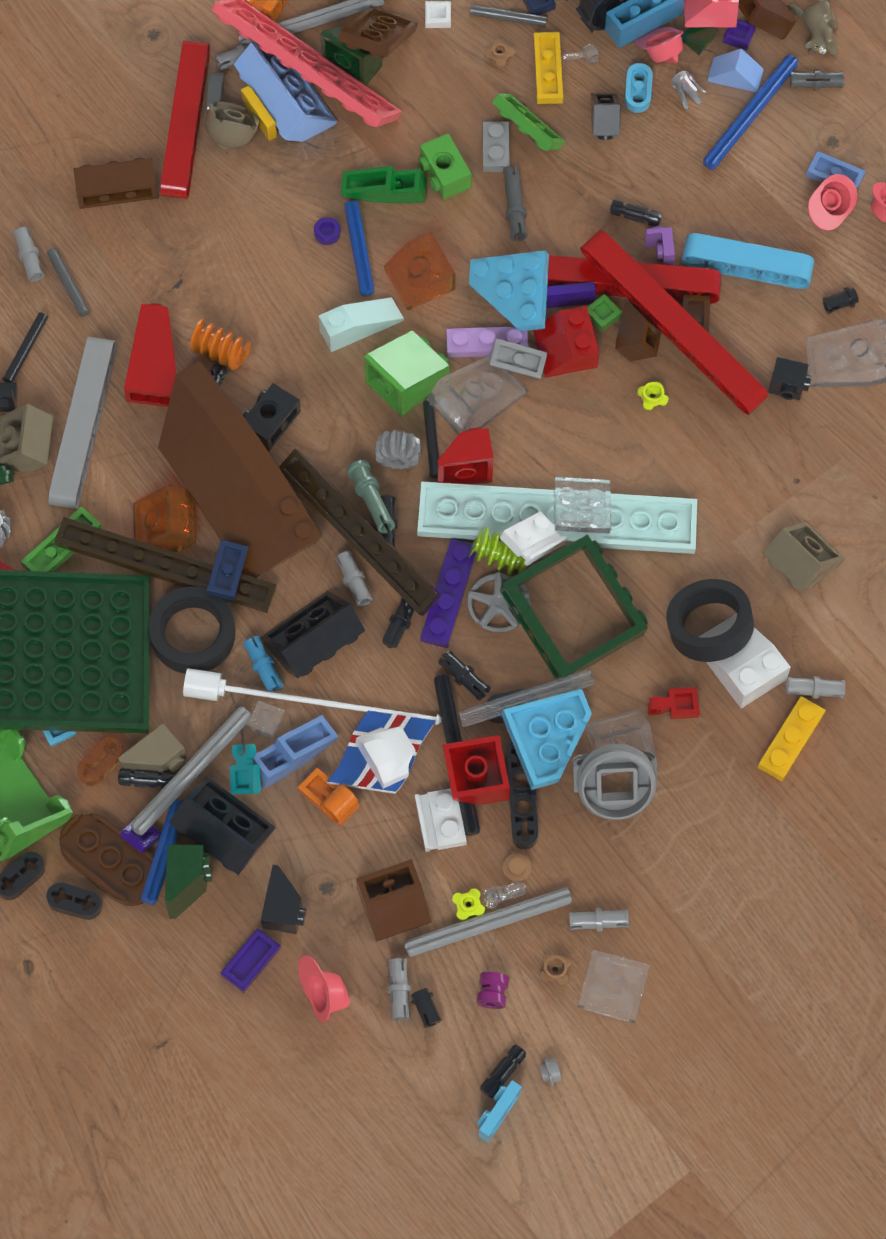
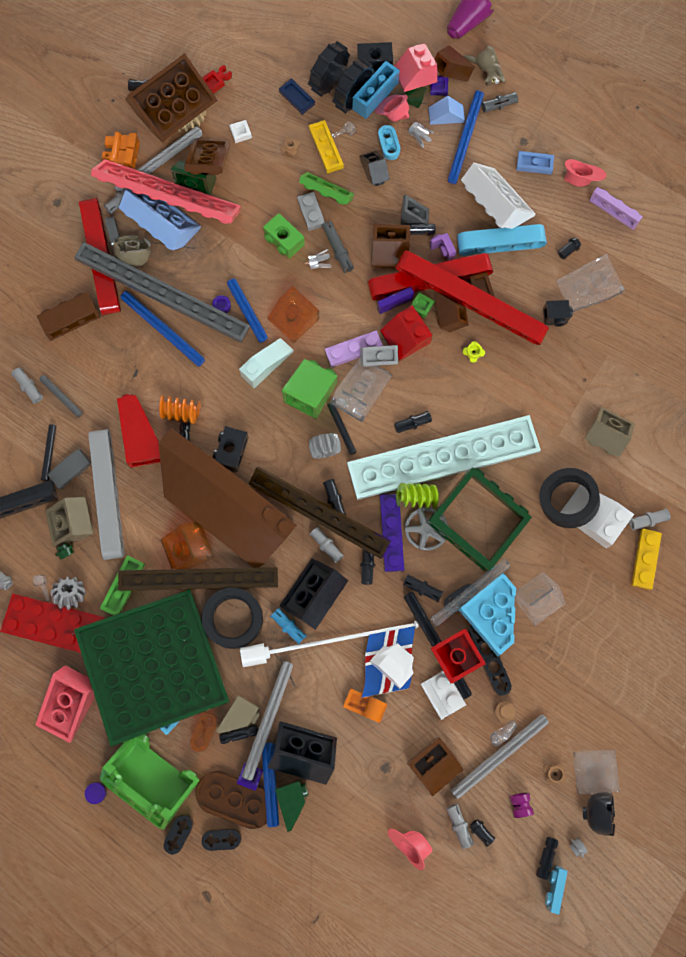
camera: 20 degrees left, 10 degrees up
(44, 375) = (70, 467): none -> dark grey slope
(227, 570) = (242, 571): dark blue plate -> none
(236, 237) = (162, 328): none -> blue axle
(245, 774) = (304, 711): teal plate -> none
(250, 960) = (354, 839): dark purple tile -> none
(253, 189) = (161, 292): none -> dark grey plate
(255, 106) = (142, 232): yellow tile -> none
(265, 719) = (304, 664): clear plate -> none
(282, 904) = (362, 794): black slope -> none
(294, 750) = (329, 681): medium blue slope -> none
(367, 487) = (314, 479): sand green pin -> none
(384, 185) = (248, 261): green slope -> none
(465, 912) = (477, 748): neon yellow plate -> none
(467, 459) = (374, 437): red slope -> none
(476, 211) = (315, 259): none -> flat silver piece
(508, 15) = (286, 118): dark grey bar -> none
(514, 286) = (359, 306): medium azure plate -> none
(532, 459) = (413, 422): none -> black axle
(533, 538) = (436, 480): white plate -> none
(582, 505) = (459, 446): clear plate -> none
(584, 215) = (389, 244): none -> reddish brown slope
(598, 1034) = (600, 813): none -> black cylinder
(599, 919) = (571, 729): light grey pin -> none
(613, 759) = (532, 631): light grey piece -> none
(636, 187) = (413, 212): none -> dark grey slope
(680, 703) = (567, 560): red plate -> none
(761, 200) = (496, 196): none -> white slope
(832, 202) = (542, 182): coral piece -> none

